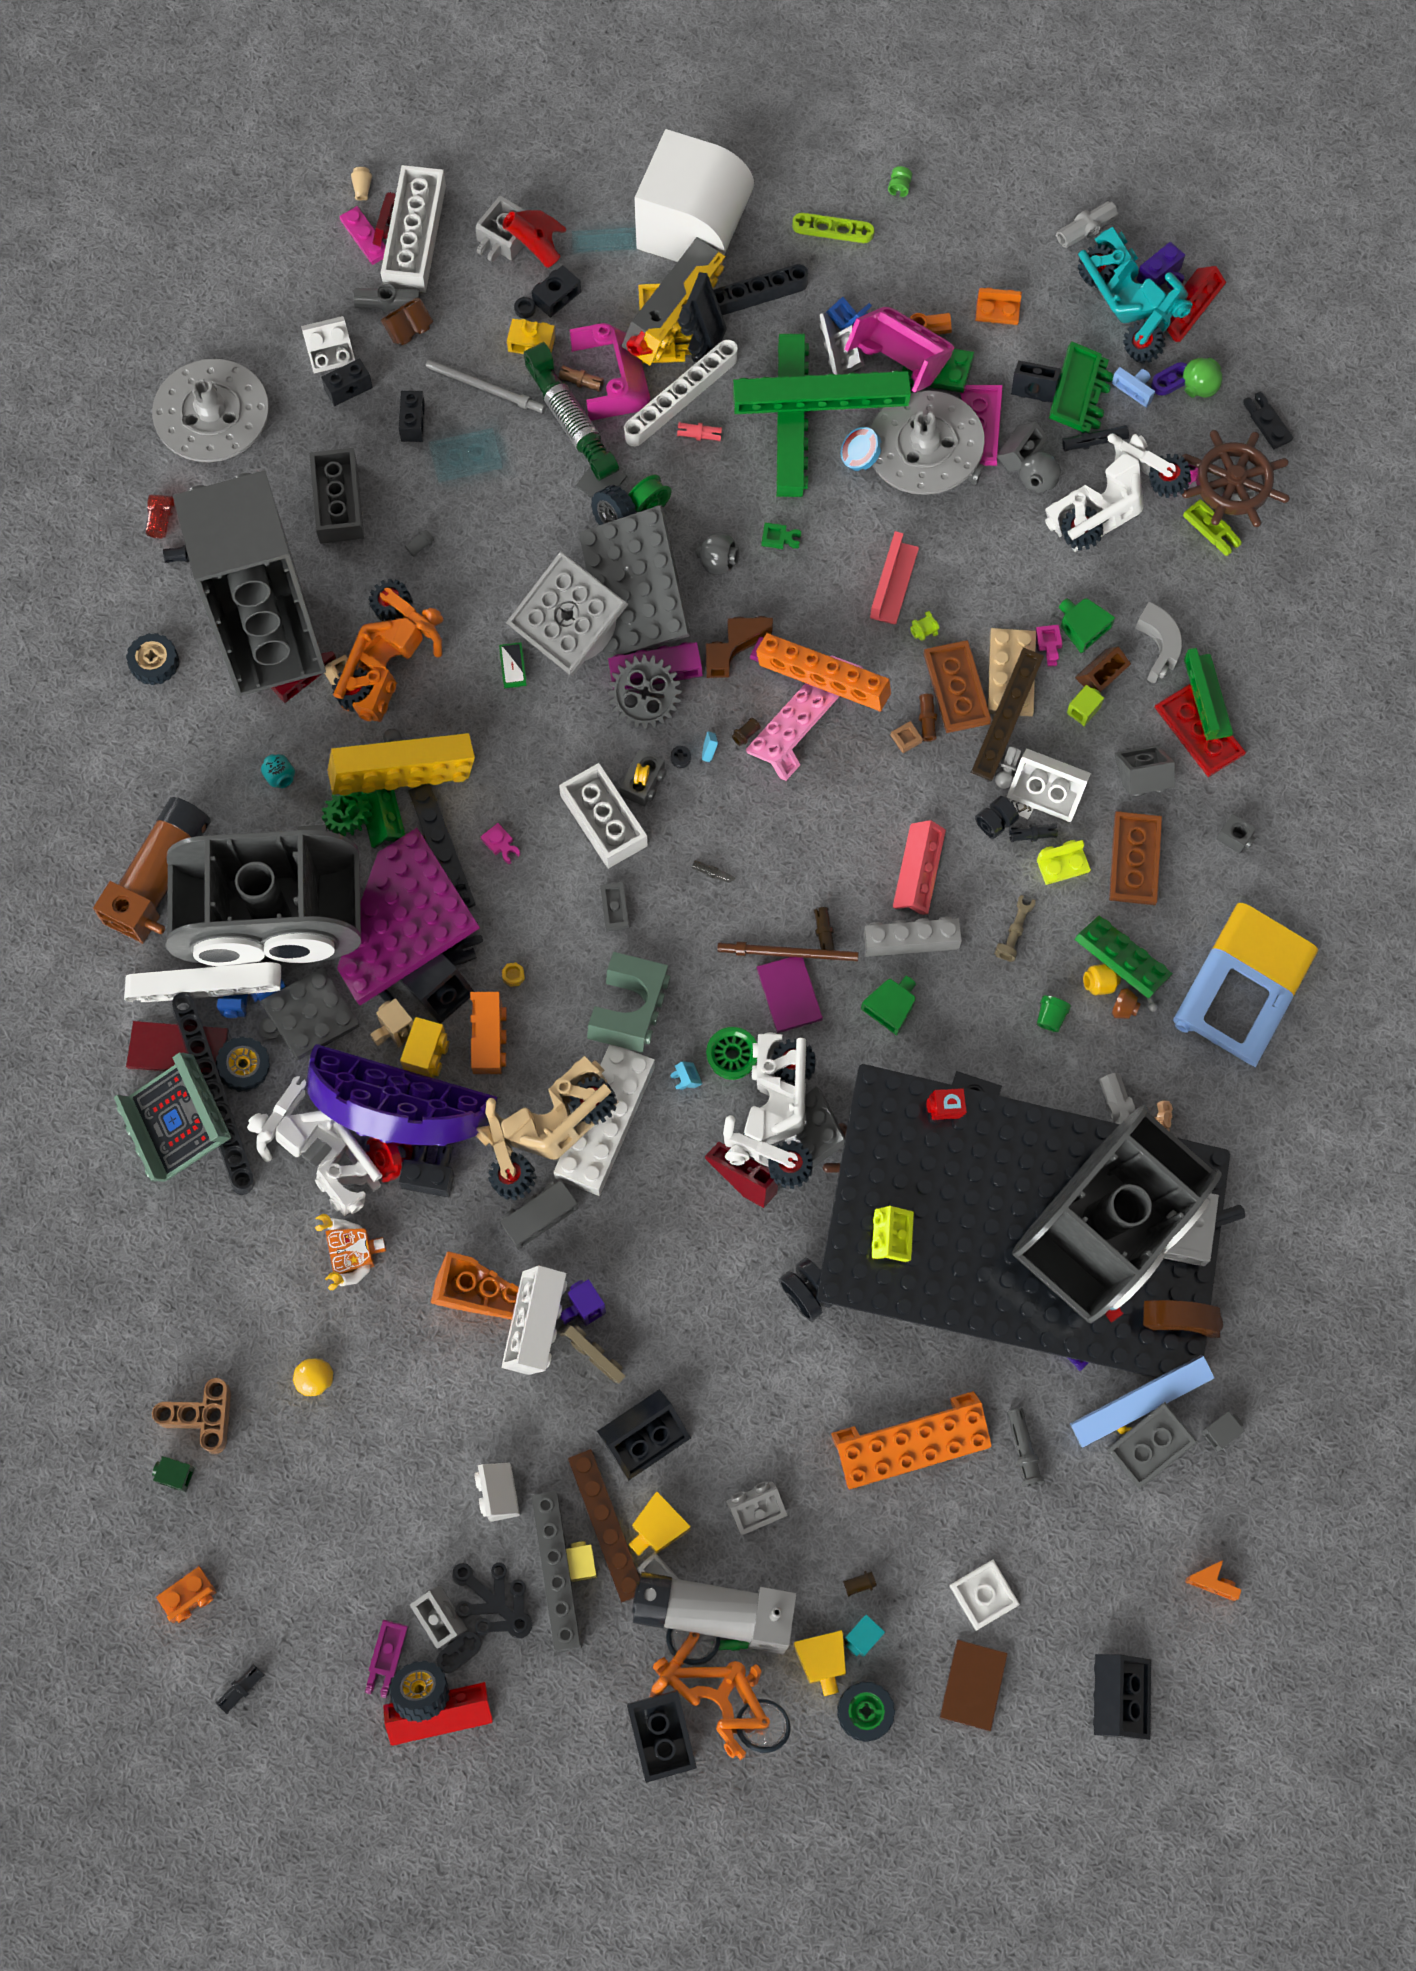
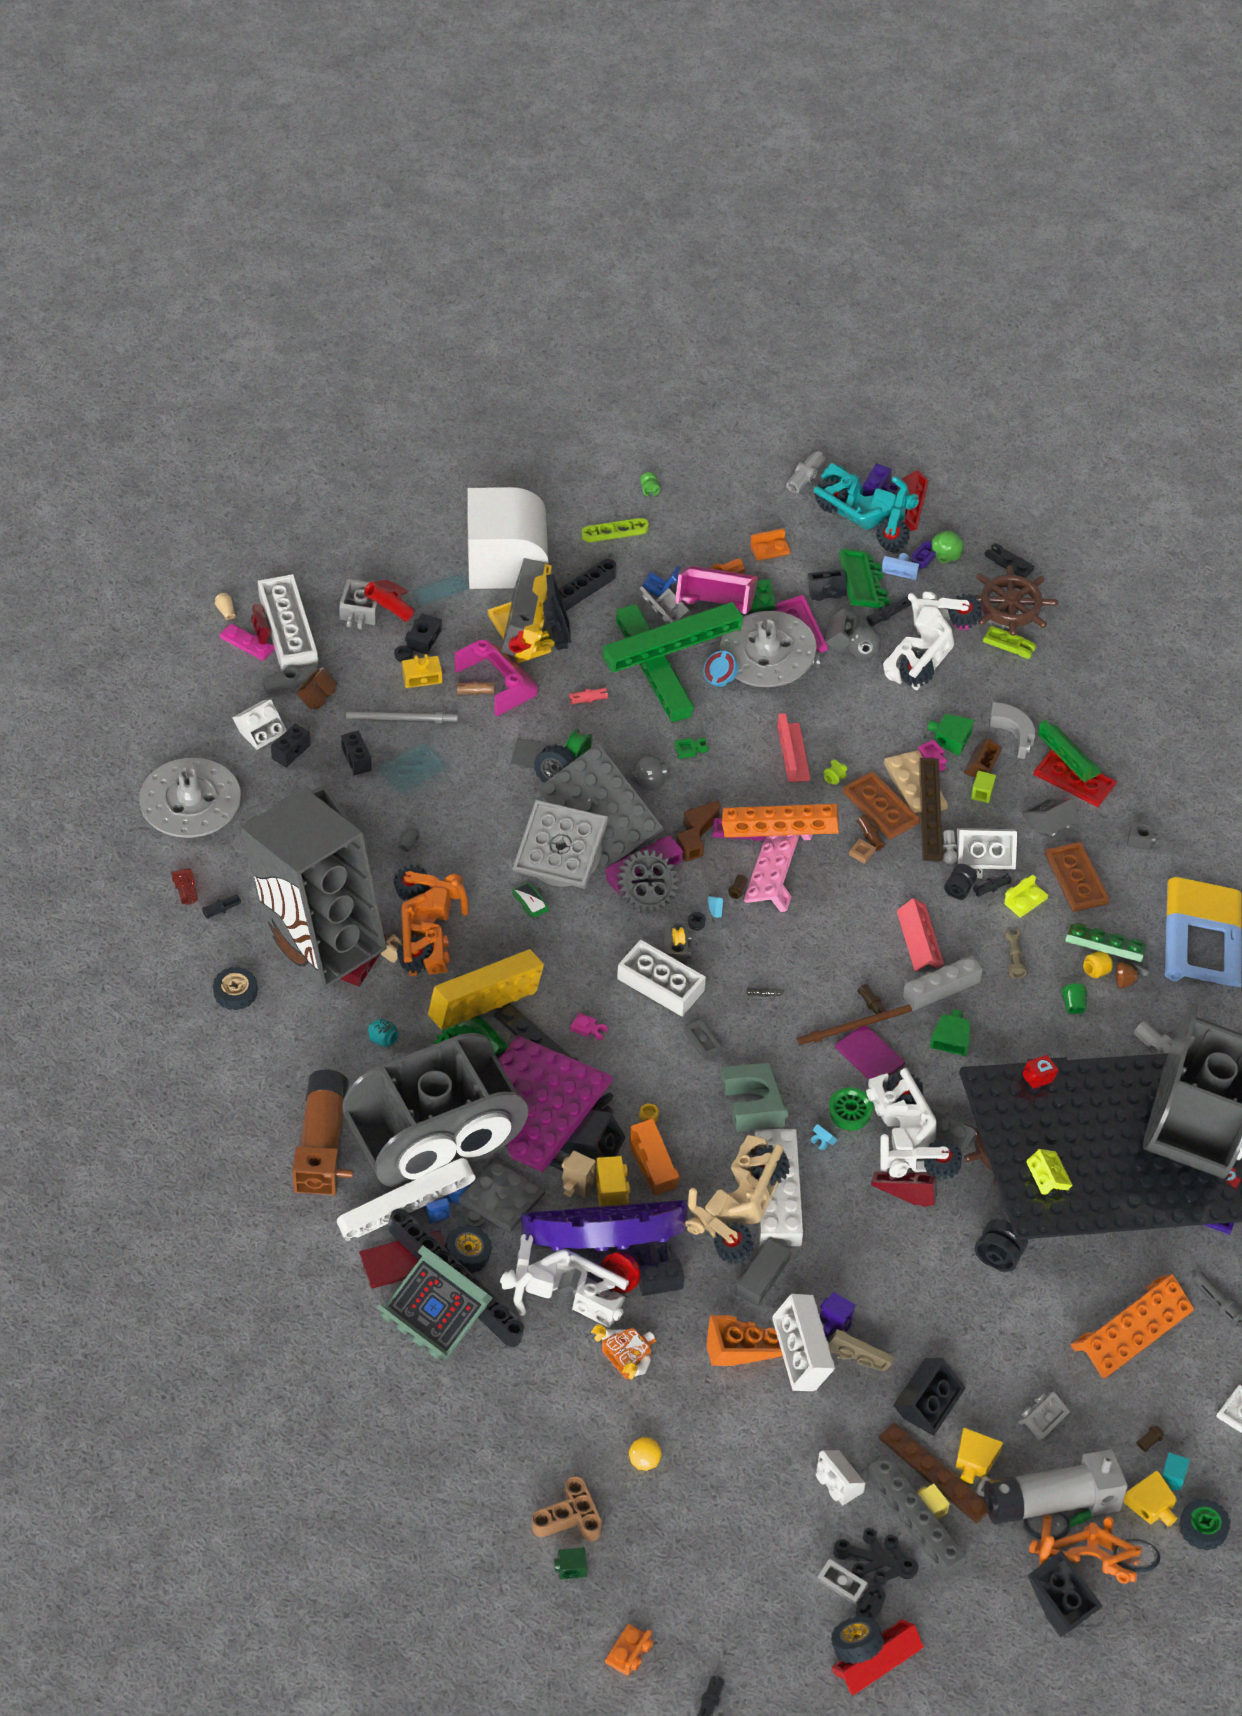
camera: 25 degrees left, 20 degrees down
(386, 1655) = (814, 1629): magenta hinge -> none
(565, 409) = (502, 725): dark green piece -> none
(684, 384) = (560, 674): white beam -> none

